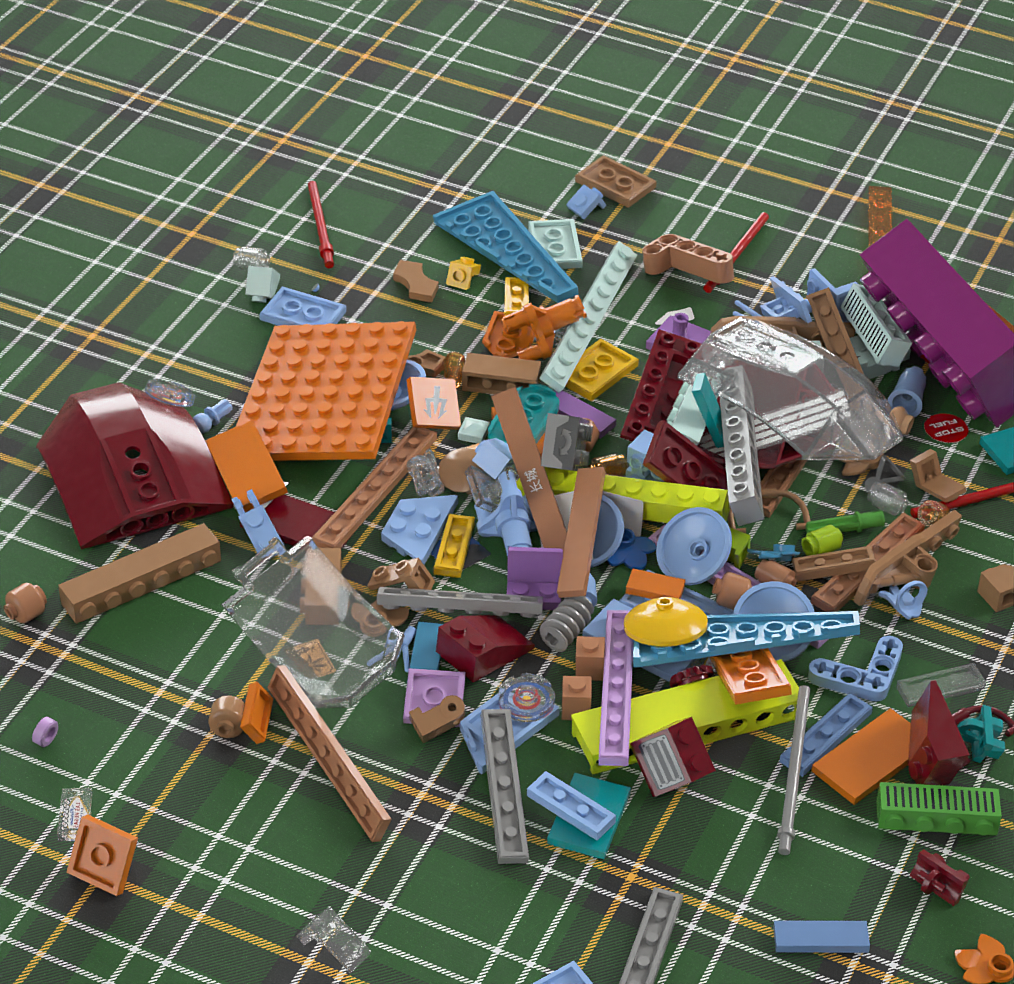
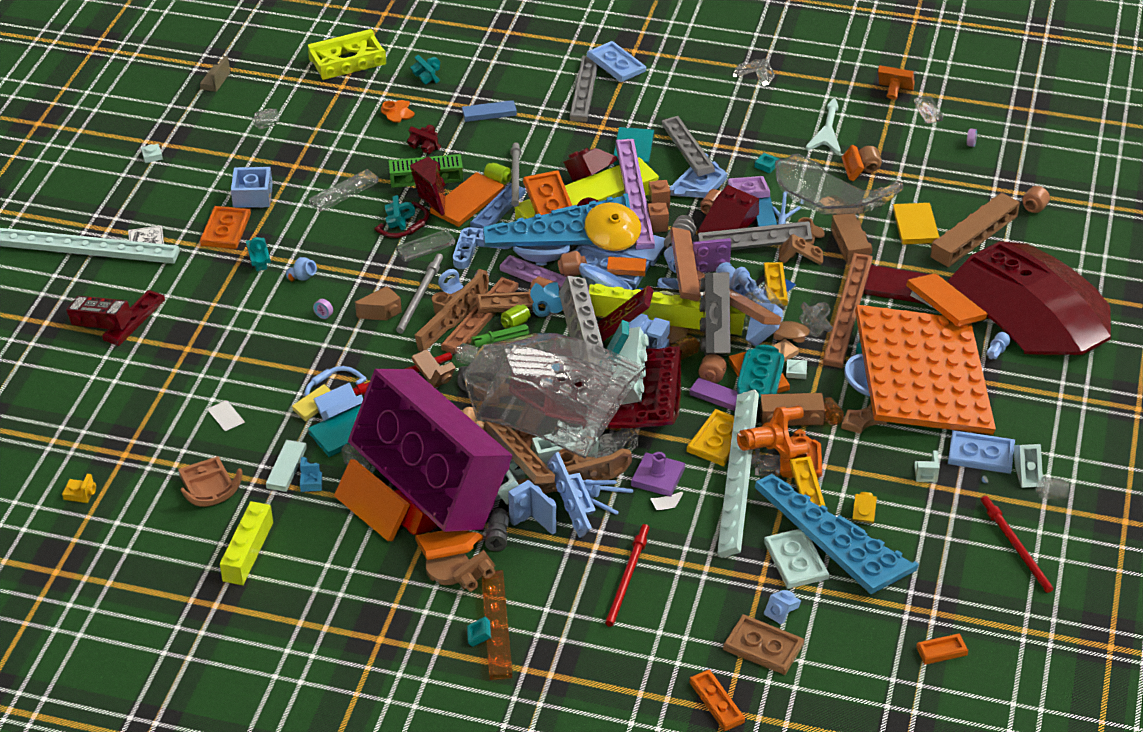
camera: 170 degrees right, 0 degrees up
(170, 393) = (1038, 351): clear tile -> none
(204, 613) = (915, 223): none -> yellow tile
(256, 523) = (914, 264): light blue hinge -> none
(267, 788) = (826, 135): none -> light aqua piece
(329, 754) = (797, 147): nougat tile -> none
(375, 297) = (927, 470): none -> light aqua panel
(385, 749) = (766, 162): none -> teal tile
(412, 276) = (907, 501): medium nougat tile -> none
(418, 525) = (807, 288): light blue wing -> none
(433, 403) = (832, 363): tile -> none
(438, 719) = (741, 169): medium nougat leg -> none
(444, 155) = (942, 649): none -> orange tile
(497, 674) = (708, 200): none -> nougat brick
(527, 697) = (690, 187): clear tile -> none
(571, 805) = (645, 136): light blue plate -> none
(675, 148) = (717, 700): none -> orange tile
(687, 256) = (665, 539): nougat beam -> none
(821, 785) = (498, 173): none -> lime brick
(896, 216) = (479, 631): none -> teal tile
(928, 509) = (435, 341): clear orange brick -> none
(933, 637) = (432, 270): none -> light grey bar

